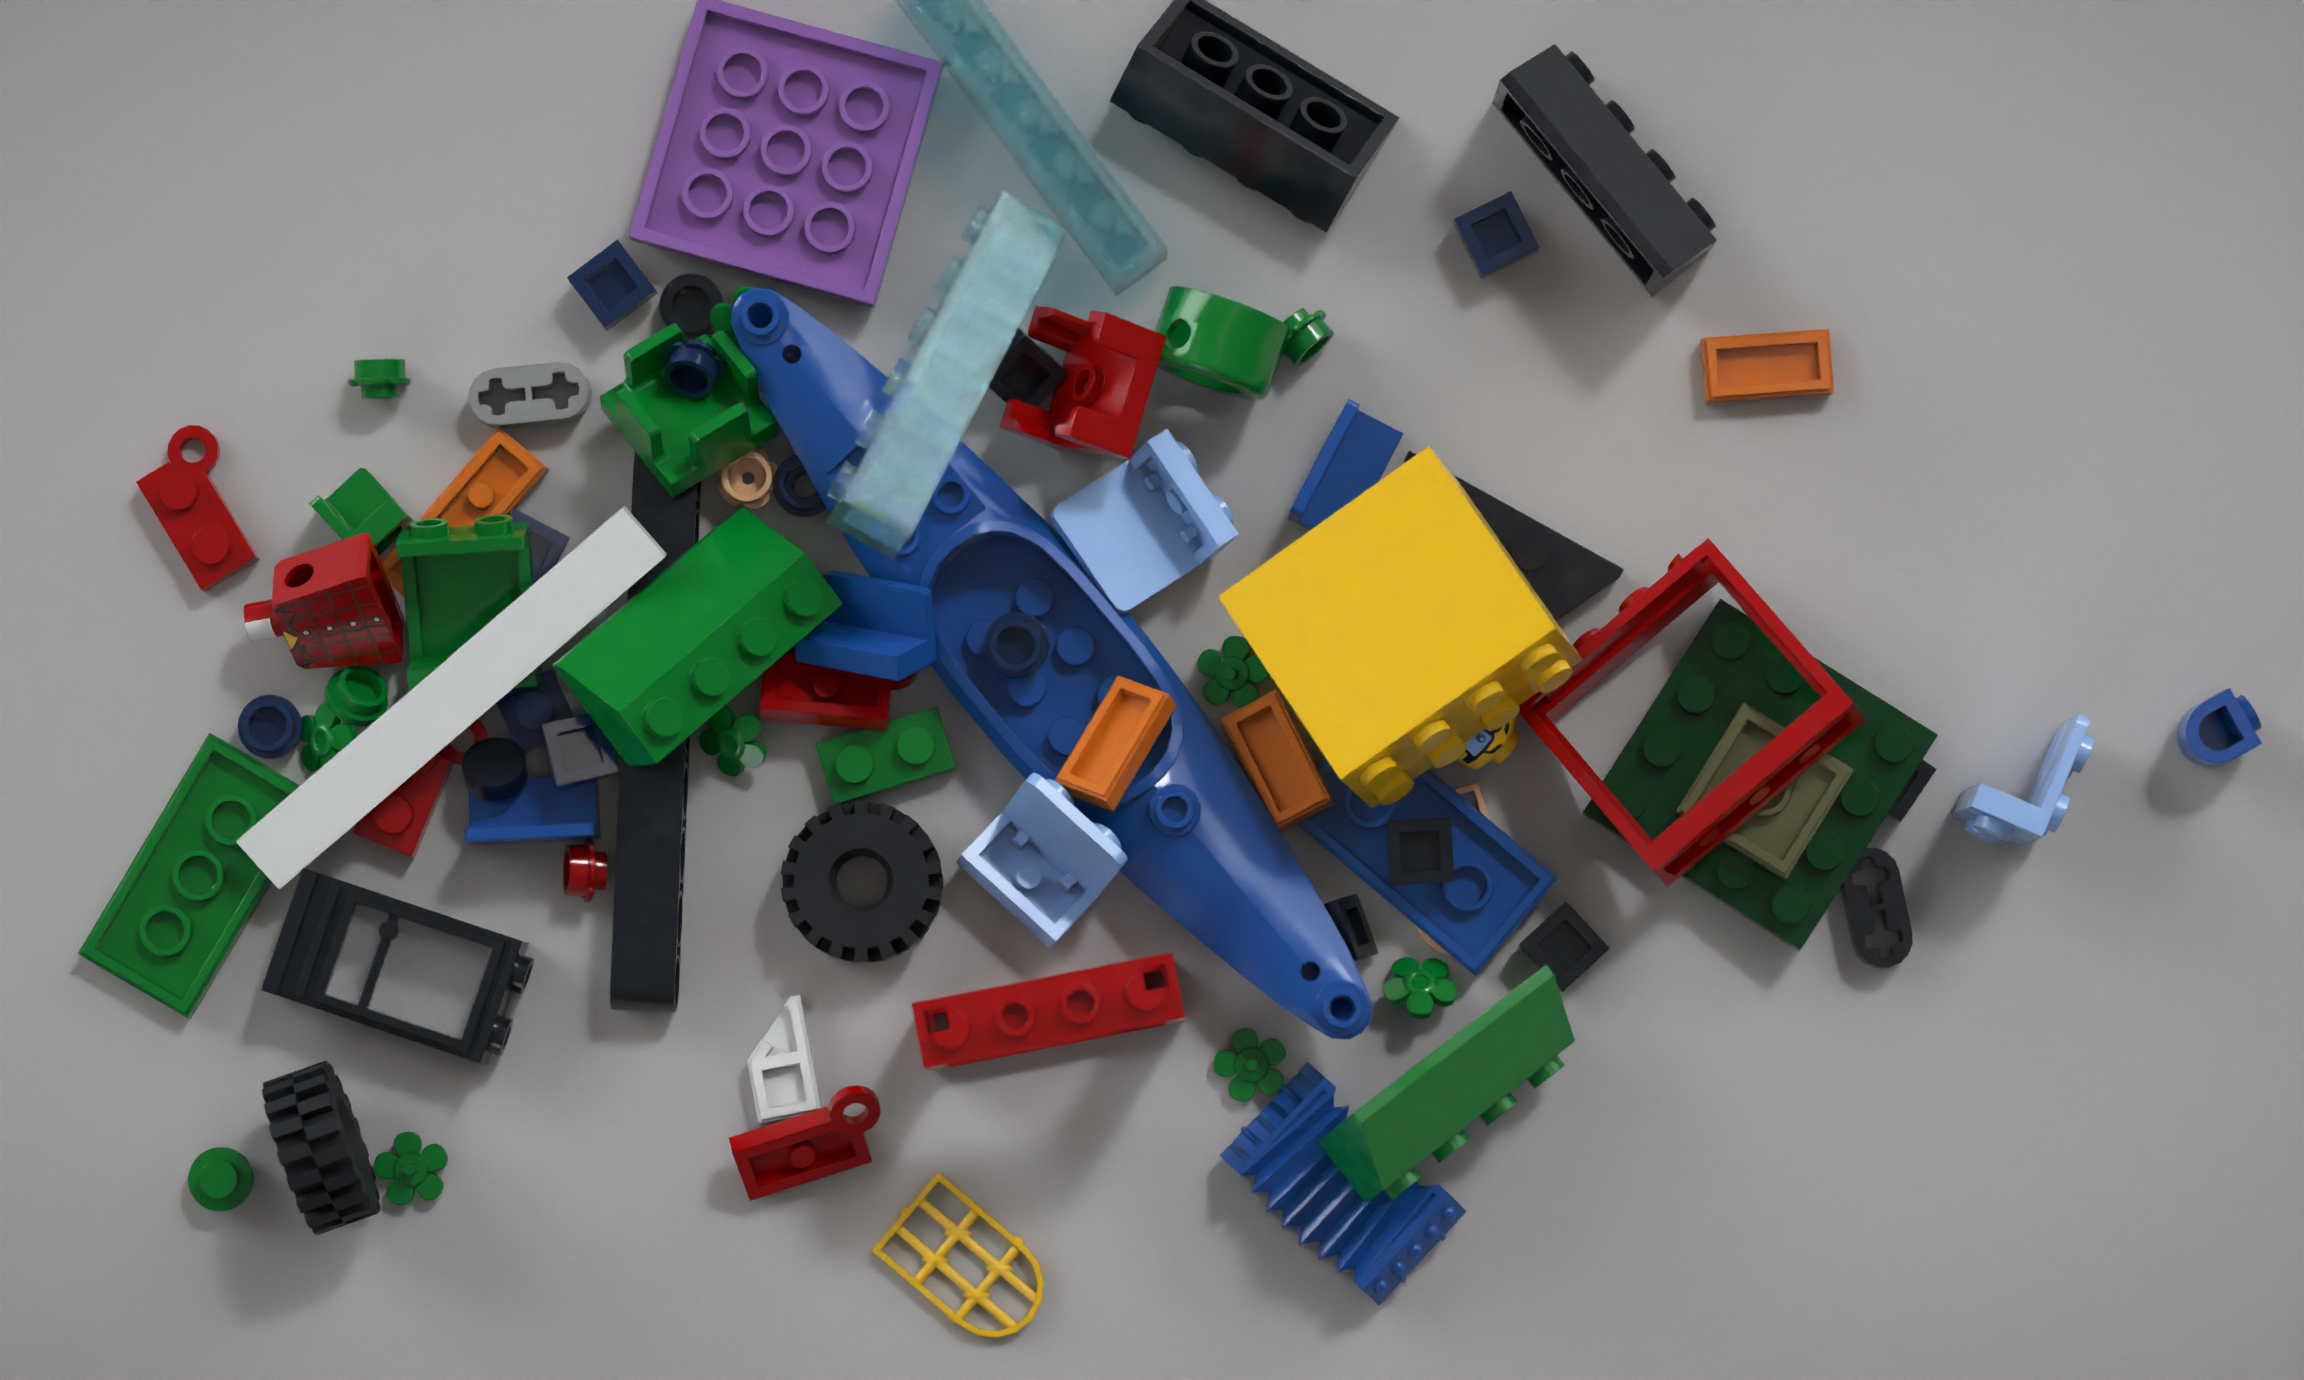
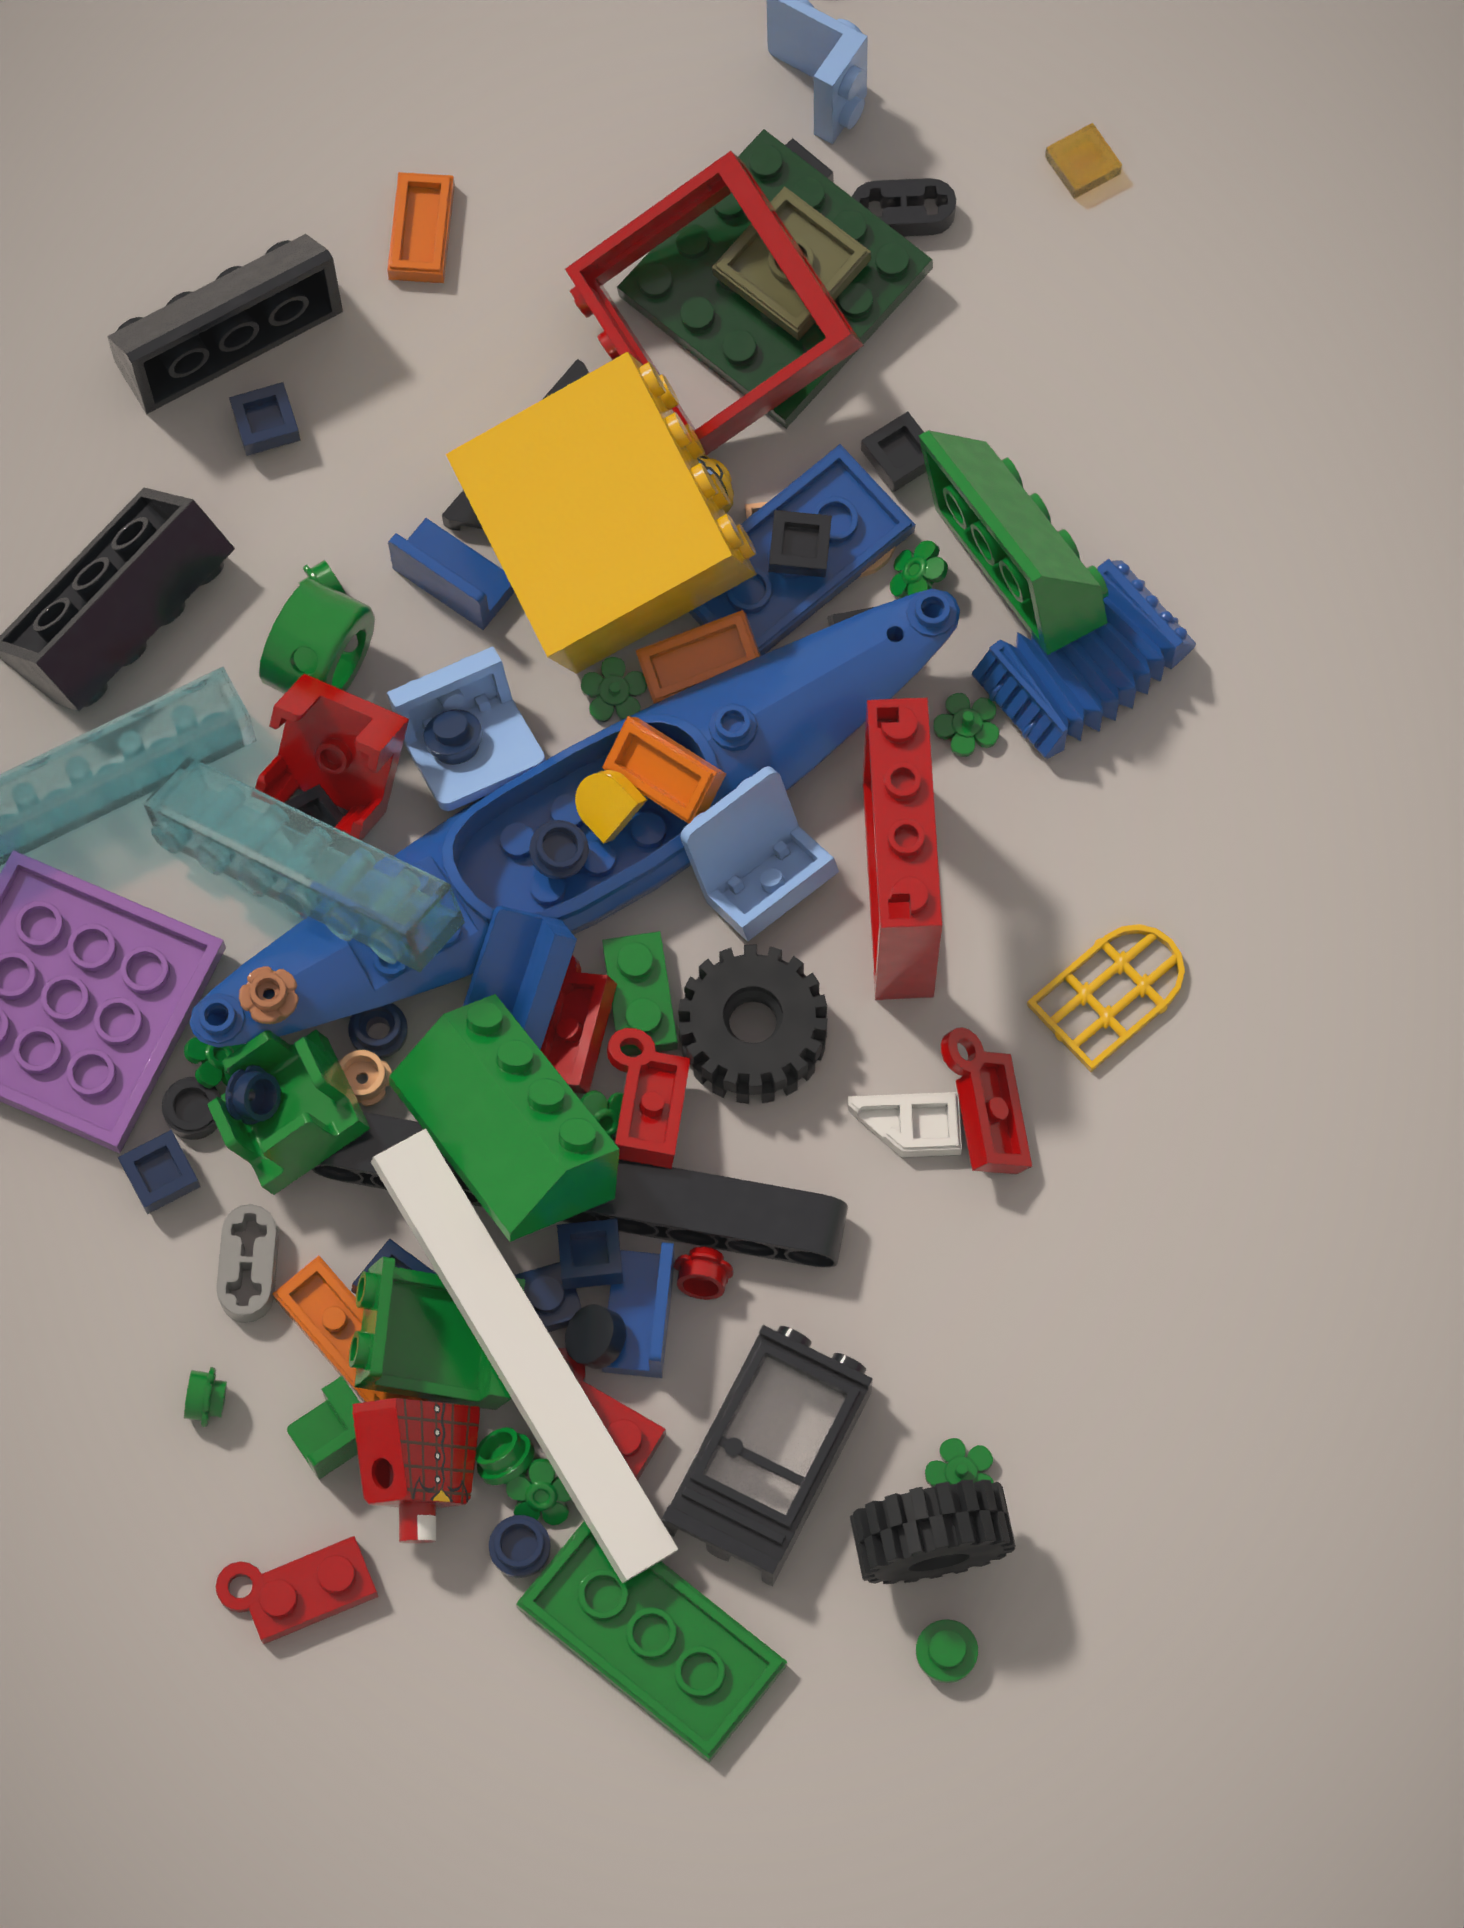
camera: 80 degrees left, 15 degrees down
(753, 785) = (650, 1099): none -> red hinge
(784, 384) = (274, 1009): none -> nougat plate
(1075, 687) = (607, 803): none -> yellow tile
(1136, 508) = (453, 736): none -> dark blue plate
(1970, 1106) = (1083, 160): none -> clear yellow tile

